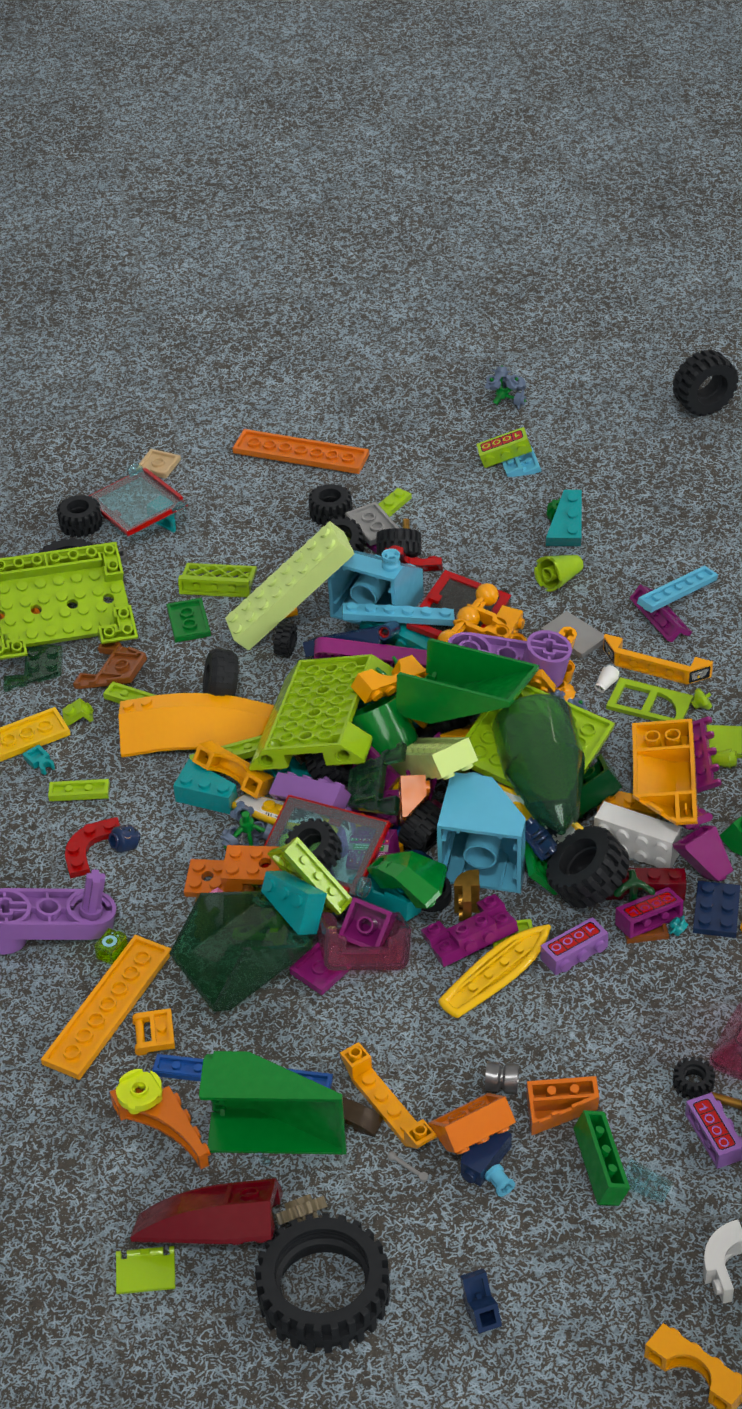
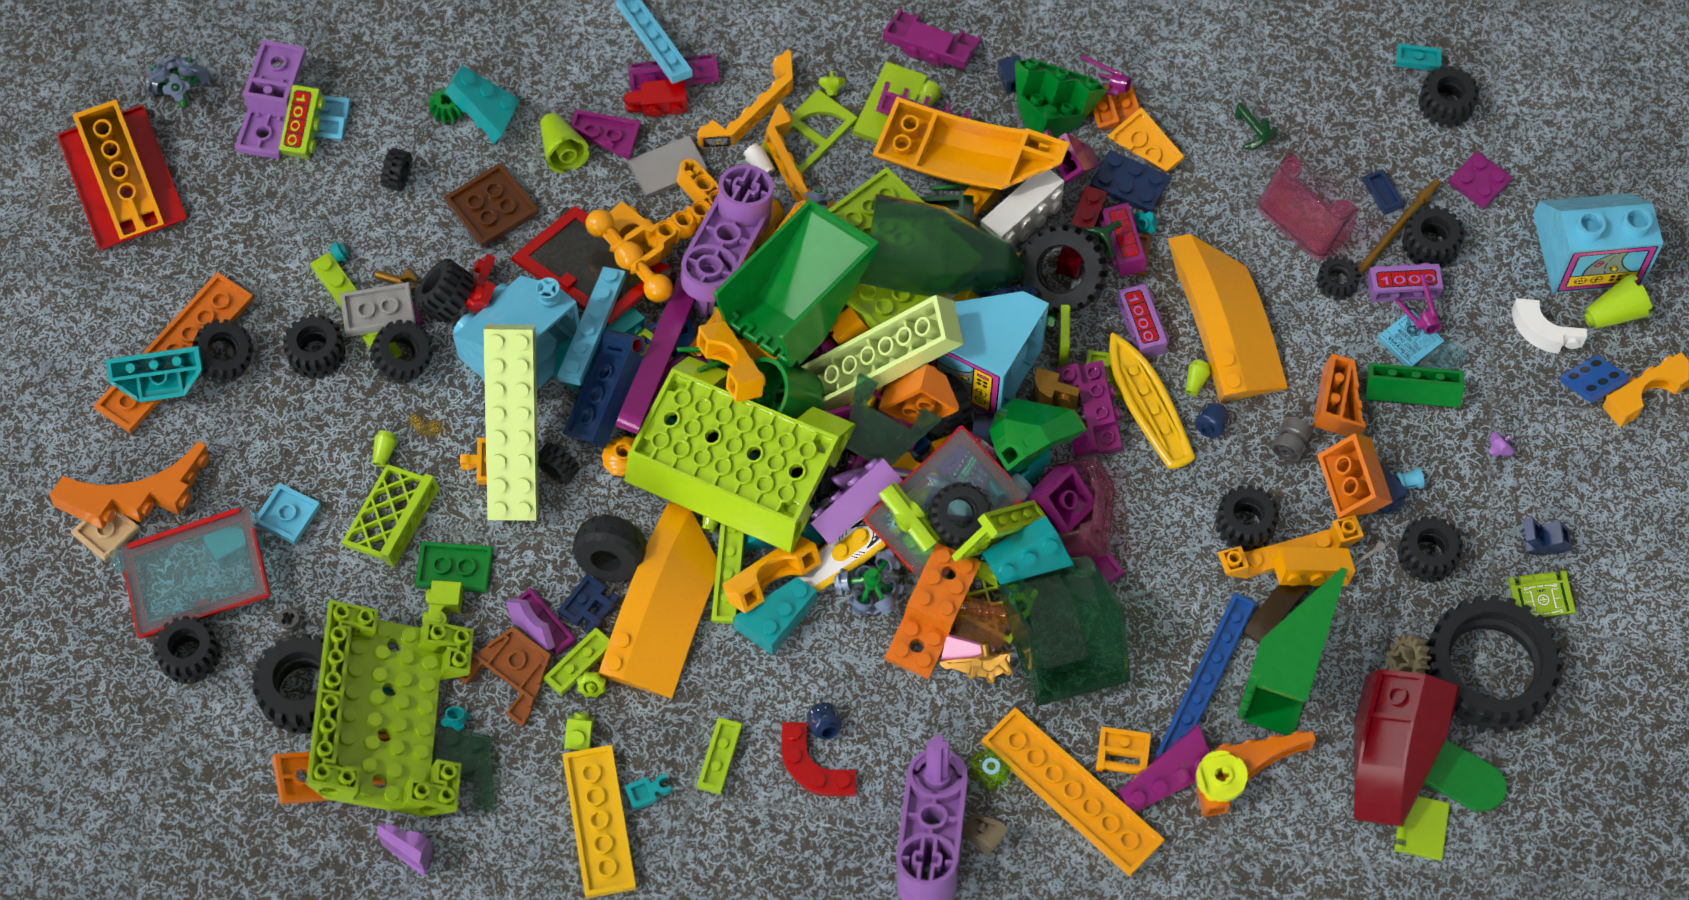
camera: 75 degrees left, 20 degrees up
(54, 958) = (984, 832): none -> dark tan slope
(69, 650) = (455, 718): none -> teal plate
(113, 707) = (591, 684): none -> lime piece
(131, 1055) = (1167, 773): none -> magenta wing
(152, 662) = (525, 618): none -> medium lavender tile
(156, 616) = (442, 599): none -> lime brick
(161, 673) = (560, 634): none -> magenta tile
(180, 463) = (134, 499): none -> orange arch
(180, 684) = (583, 599): none -> dark blue plate
(198, 532) = (287, 513): none -> medium azure plate
(206, 1288) = (1467, 779): none -> green tile
(268, 559) = (383, 447): none -> lime cone
(271, 438) = (156, 373): none -> teal wedge
(301, 811) = (909, 516): none -> lime piece
(305, 453) = (234, 336): none -> black tyre
(373, 1118) = (1311, 565): none -> light orange brick
(410, 1075) = (1252, 501): none -> black tyre
(413, 497) = (339, 251): none -> teal plate
(421, 1321) = (1544, 594): none -> lime piece
(427, 388) = (125, 191): none -> piece
(429, 1225) = (1424, 565): none -> black tyre
(489, 555) = (491, 205): none -> reddish brown plate
(490, 491) = (396, 169): none -> black tyre
(497, 1017) = (1212, 420): none -> dark blue head
(528, 891) = (1064, 336): none -> lime tile
(531, 418) = (268, 97): none -> medium lavender bracket
(538, 997) = (1197, 375): none -> lime cone
(571, 1248) = (1500, 445): none -> medium lavender piece
(585, 594) = (607, 131): none -> magenta wing
(603, 1003) = (1228, 320): none -> light orange slope
(629, 612) = (657, 98): none -> red hinge
(638, 674) = (784, 160): none -> light orange slope
(658, 1151) = (1407, 342): none -> medium azure tile
(678, 1155) = (1428, 319): none -> magenta plant
(682, 1312) = (1594, 378): none -> blue tile

